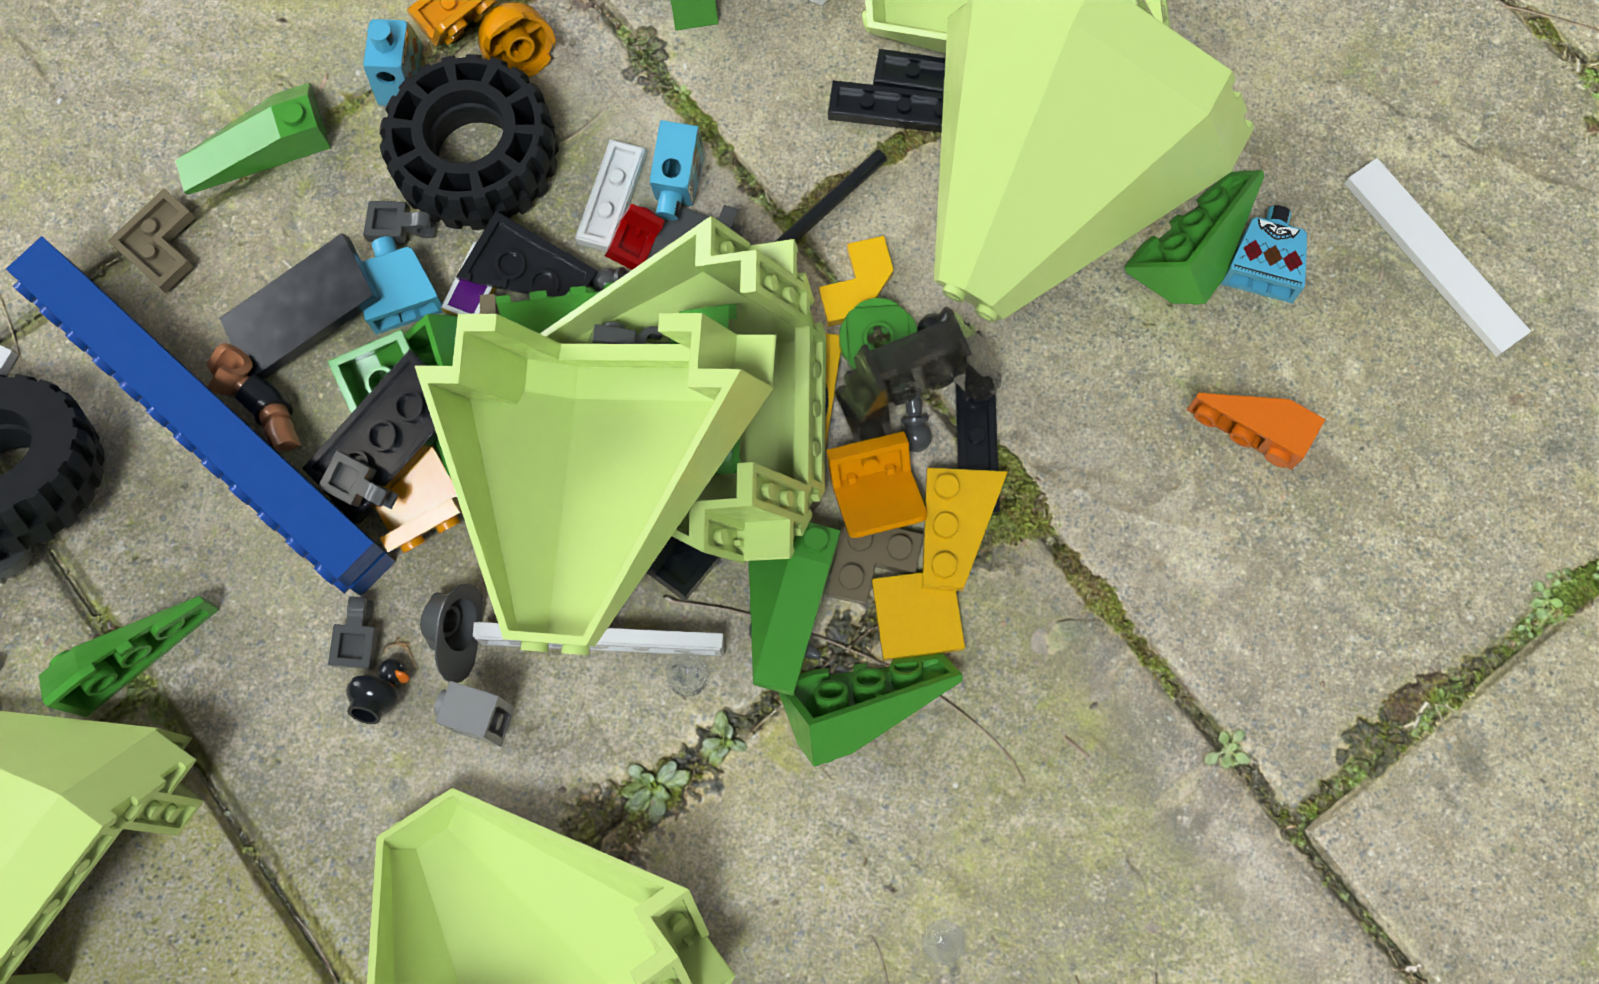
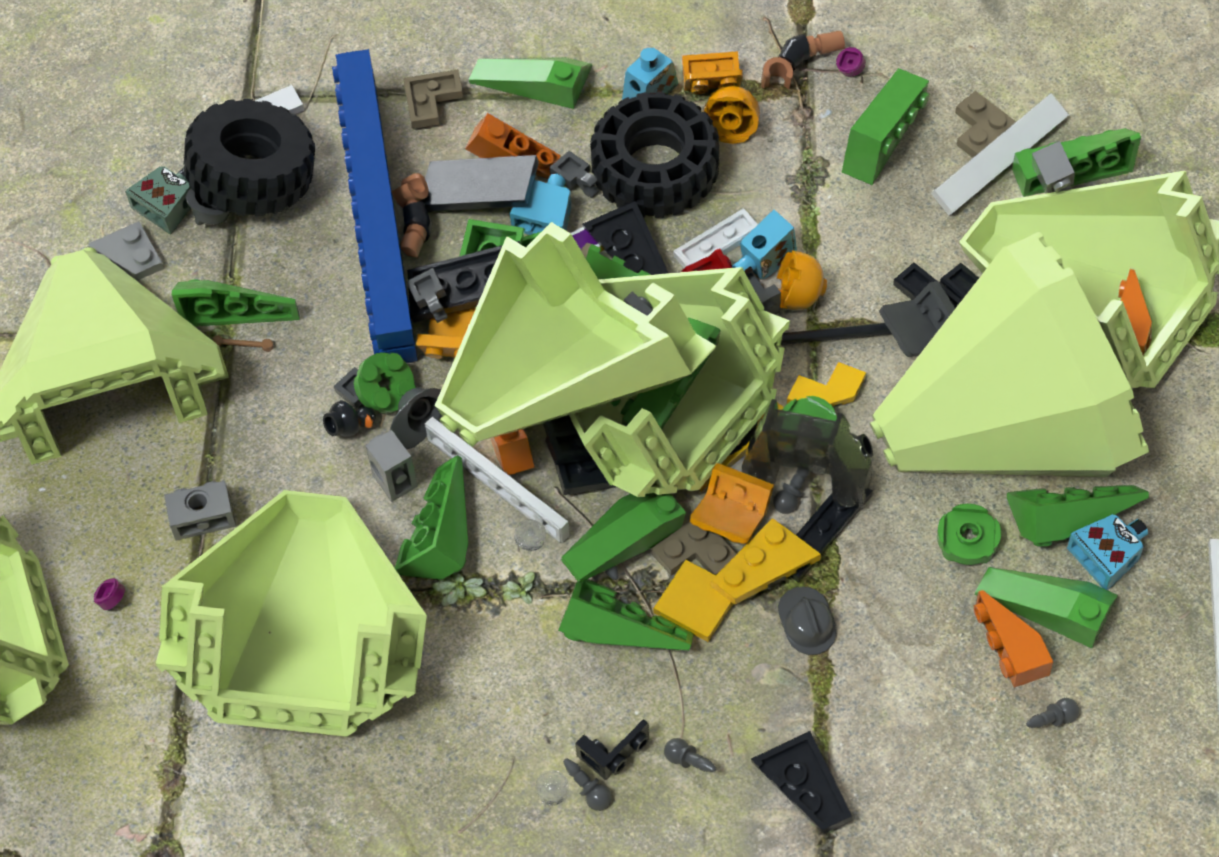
camera: 40 degrees right, 15 degrees down
(205, 667) = (266, 344): none -> medium nougat hinge
(280, 243) = (498, 139): none -> orange slope
(316, 917) = (215, 516): none -> light grey brick
(363, 627) = (370, 373): none -> bright green plate
(590, 750) = (441, 531): none -> bright green wedge
(738, 180) = (800, 281): none -> light orange cylinder
(901, 139) = (918, 320): none -> dark grey bracket
(959, 869) = (596, 754): none -> black bracket
(993, 912) = (597, 796): none -> dark grey bar
(1035, 797) = (679, 752): none -> dark grey bar
(1041, 550) = (807, 620): none -> dark grey piece
(1128, 319) = (963, 550): none -> bright green plate
(1190, 730) = (806, 781): none -> black wing
(1265, 348) = (1060, 604): none -> bright green wedge
(1358, 466) = (1063, 711): none -> dark grey bar

